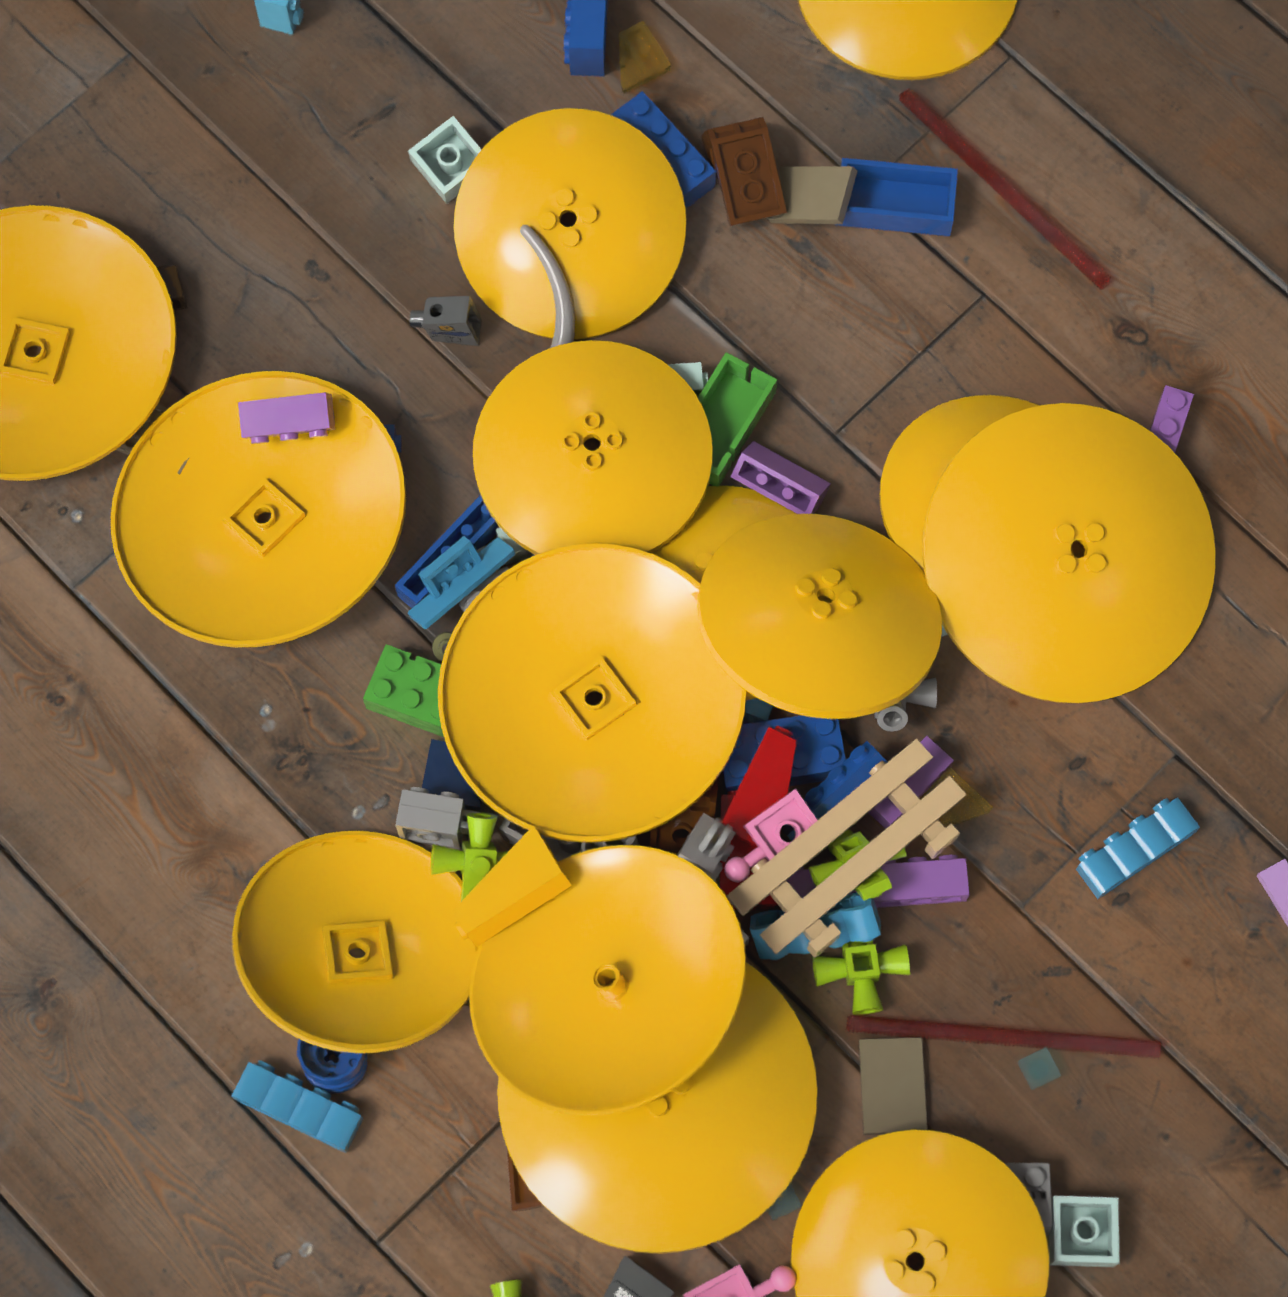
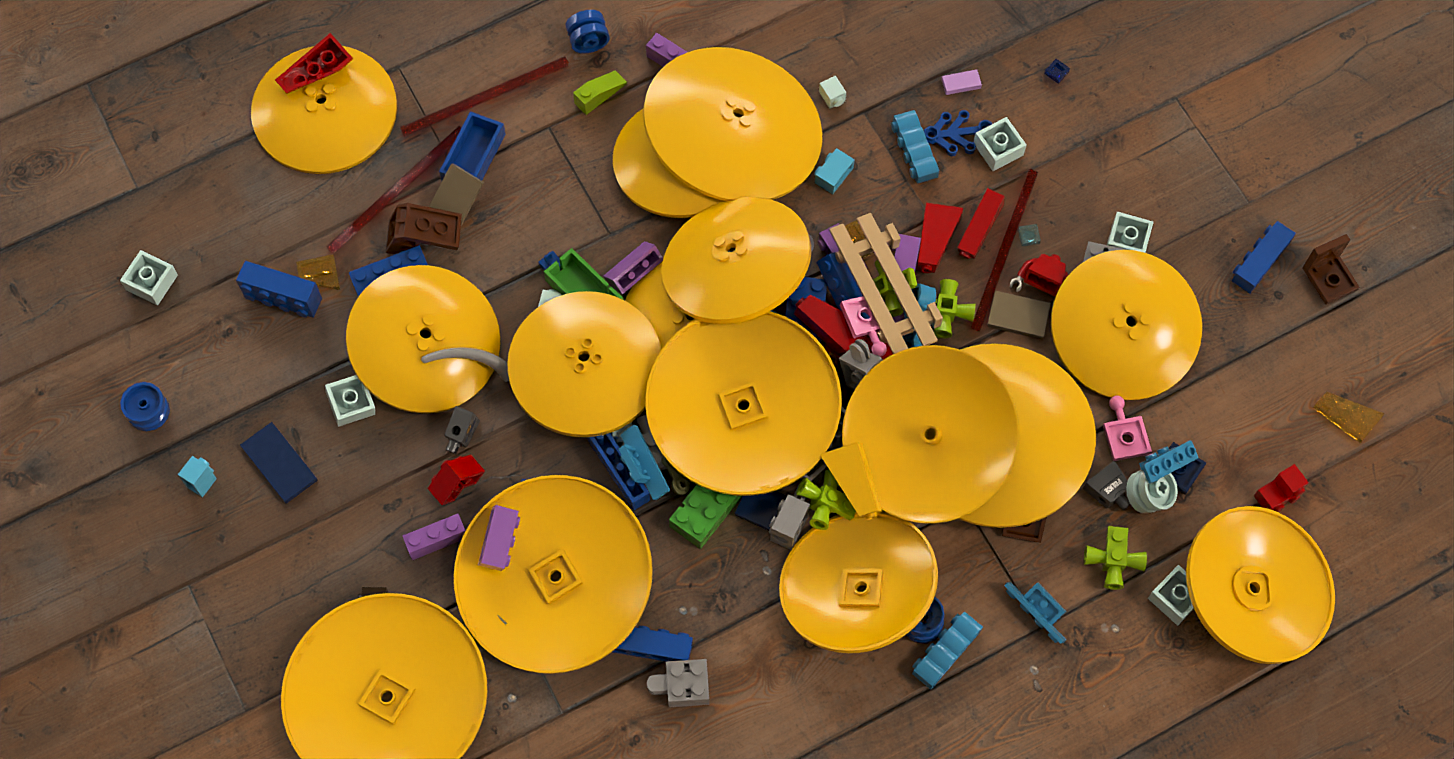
camera: 75 degrees left, 5 degrees down
(146, 738) = (684, 683): none -> light grey brick
(198, 688) = (656, 645): none -> blue brick
(278, 336) = (434, 536): none -> medium lavender brick
(336, 103) = (278, 462): none -> dark blue tile
(373, 335) = (454, 477): none -> red brick
(401, 1233) = (1041, 606): none -> dark azure bracket
(759, 360) = (548, 260): none -> blue tile
(794, 112) = (421, 165): none -> clear red axle
(973, 1105) = (1043, 273): none -> red torso
(990, 919) = (936, 234): none -> red slope
(1029, 985) = (981, 224): none -> red slope
(1049, 732) = (834, 171): none -> medium azure piece
(1069, 344) = (597, 91): none -> lime slope
(1159, 293) = (587, 31): none -> blue wheel
(1185, 979) = (999, 144): none -> light aqua brick
(1188, 904) = (954, 132): none -> blue plant
(1190, 693) = (832, 92): none -> light aqua brick

